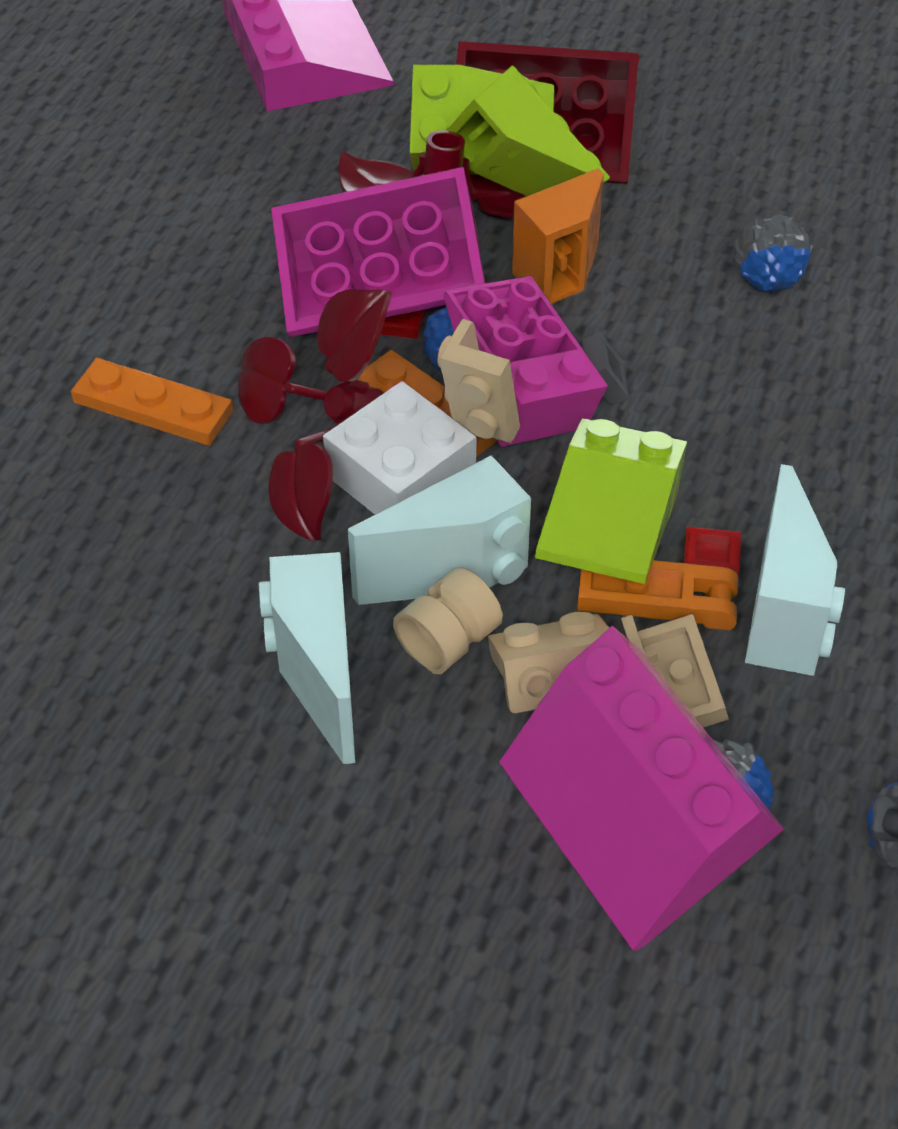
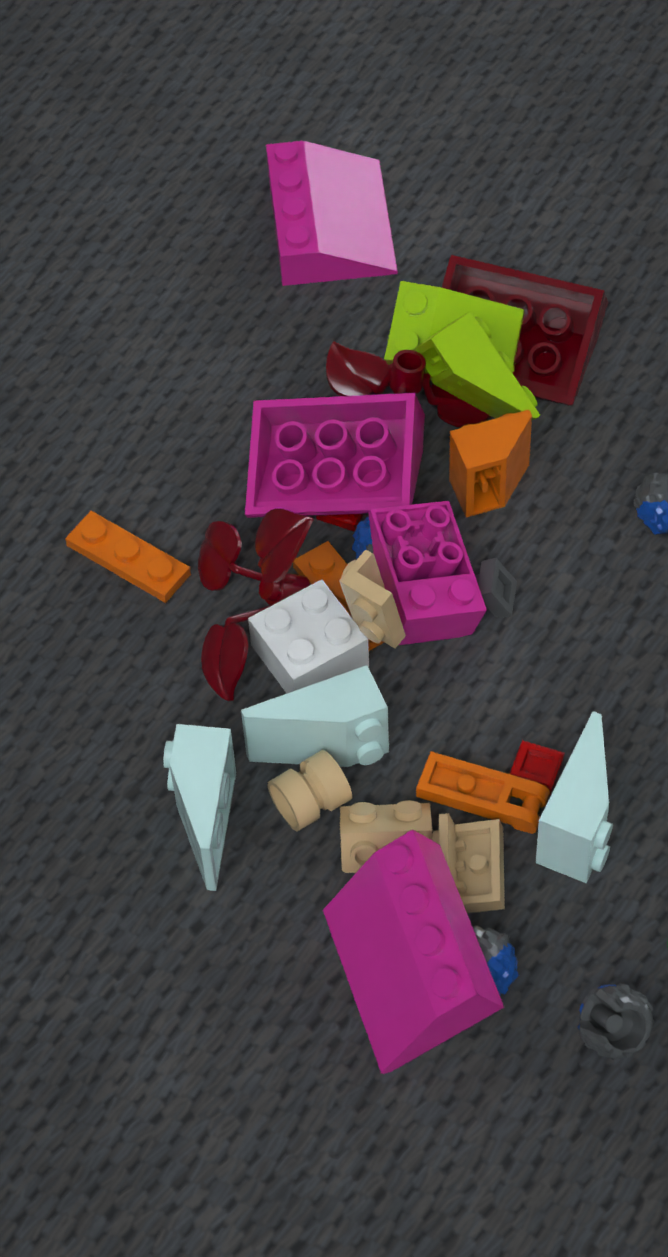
camera: 15 degrees right, 5 degrees up
(612, 500) = (464, 711): lime slope -> none

